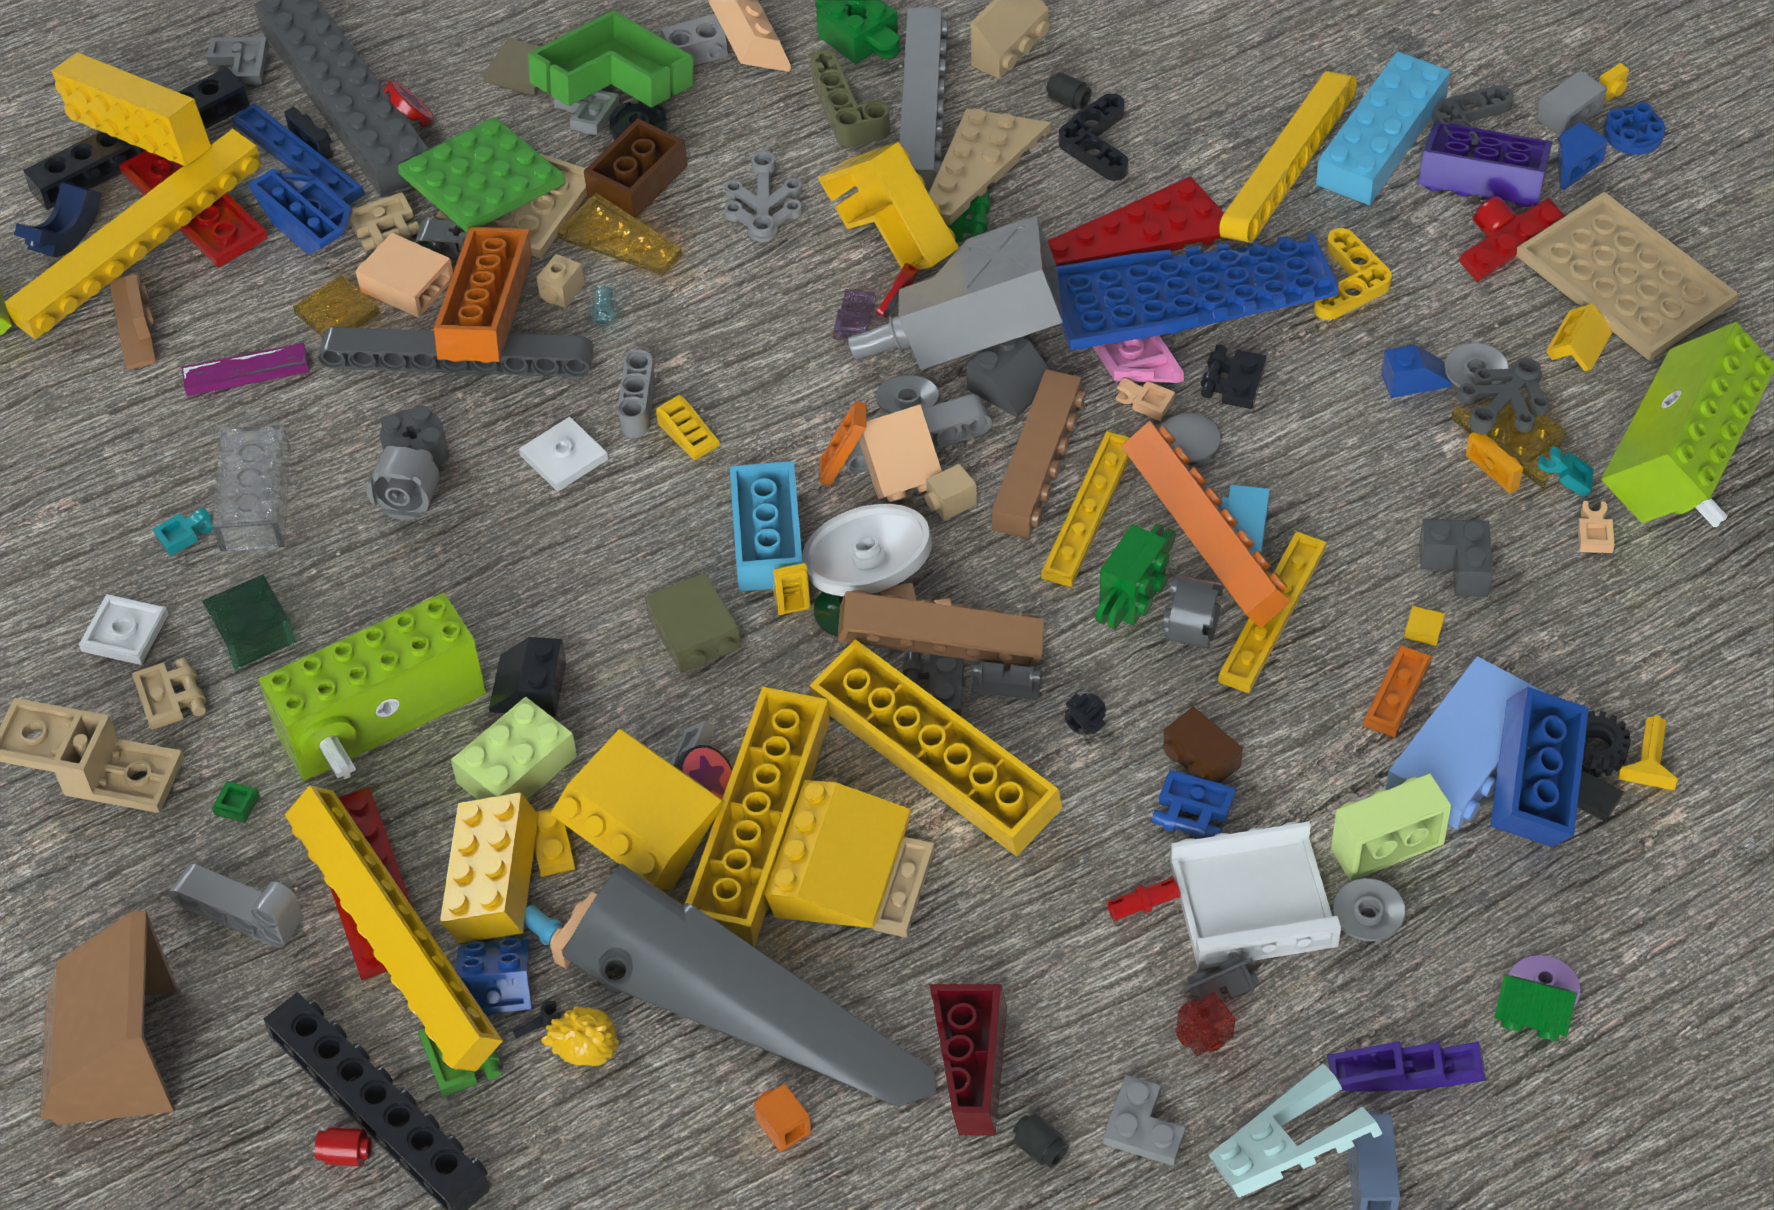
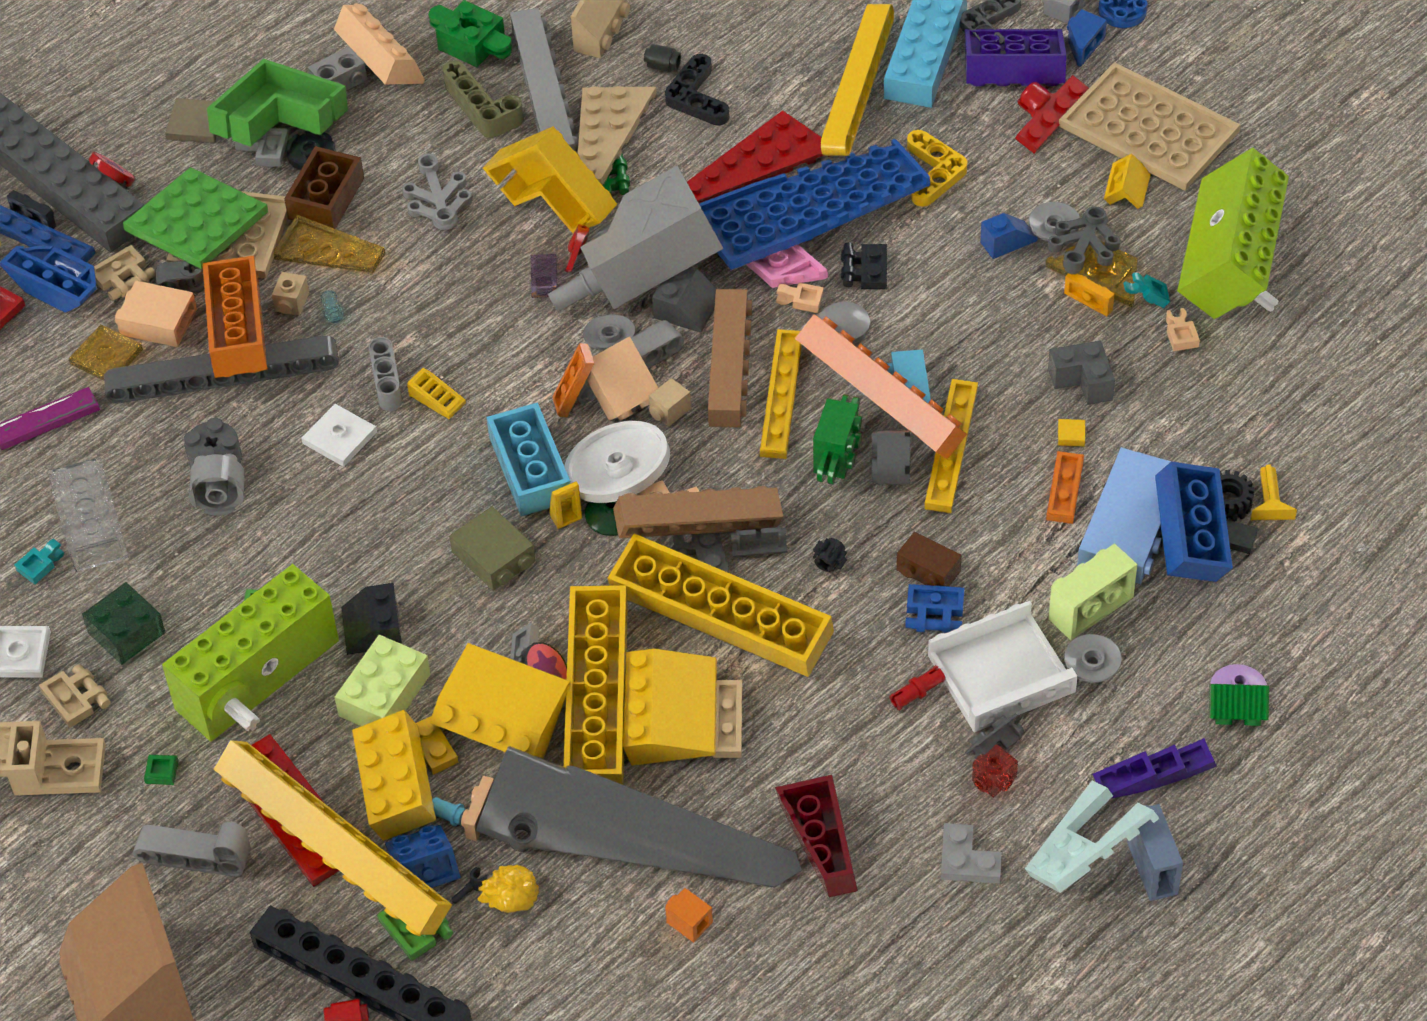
camera: 15 degrees left, 0 degrees up
(1040, 1140) = (894, 886): pearl dark grey brick -> none

